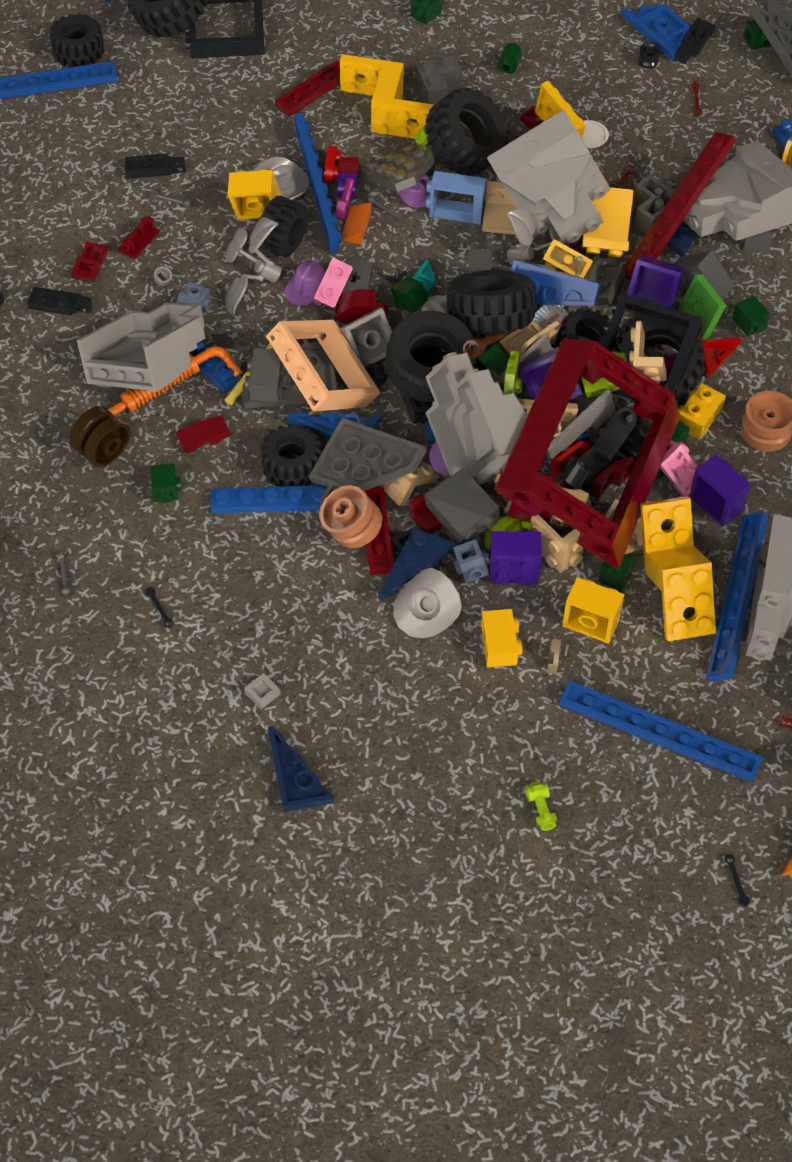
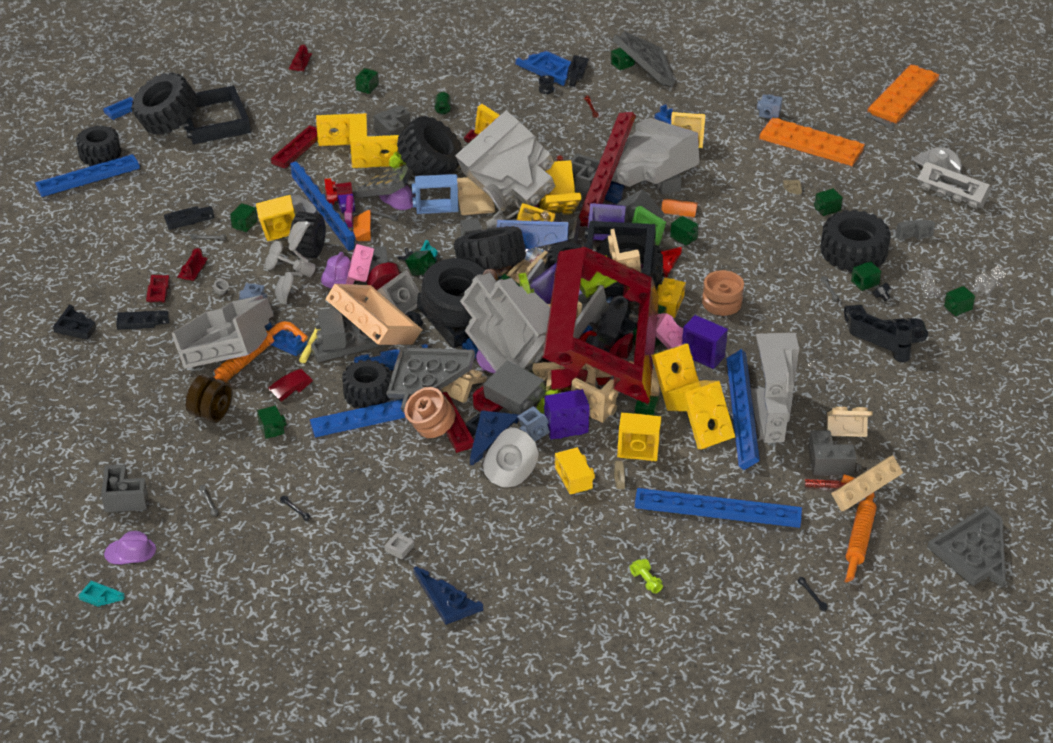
camera: 15 degrees left, 15 degrees down
(216, 181) = (243, 217): none -> dark green brick
(758, 276) = (679, 207): none -> orange slope

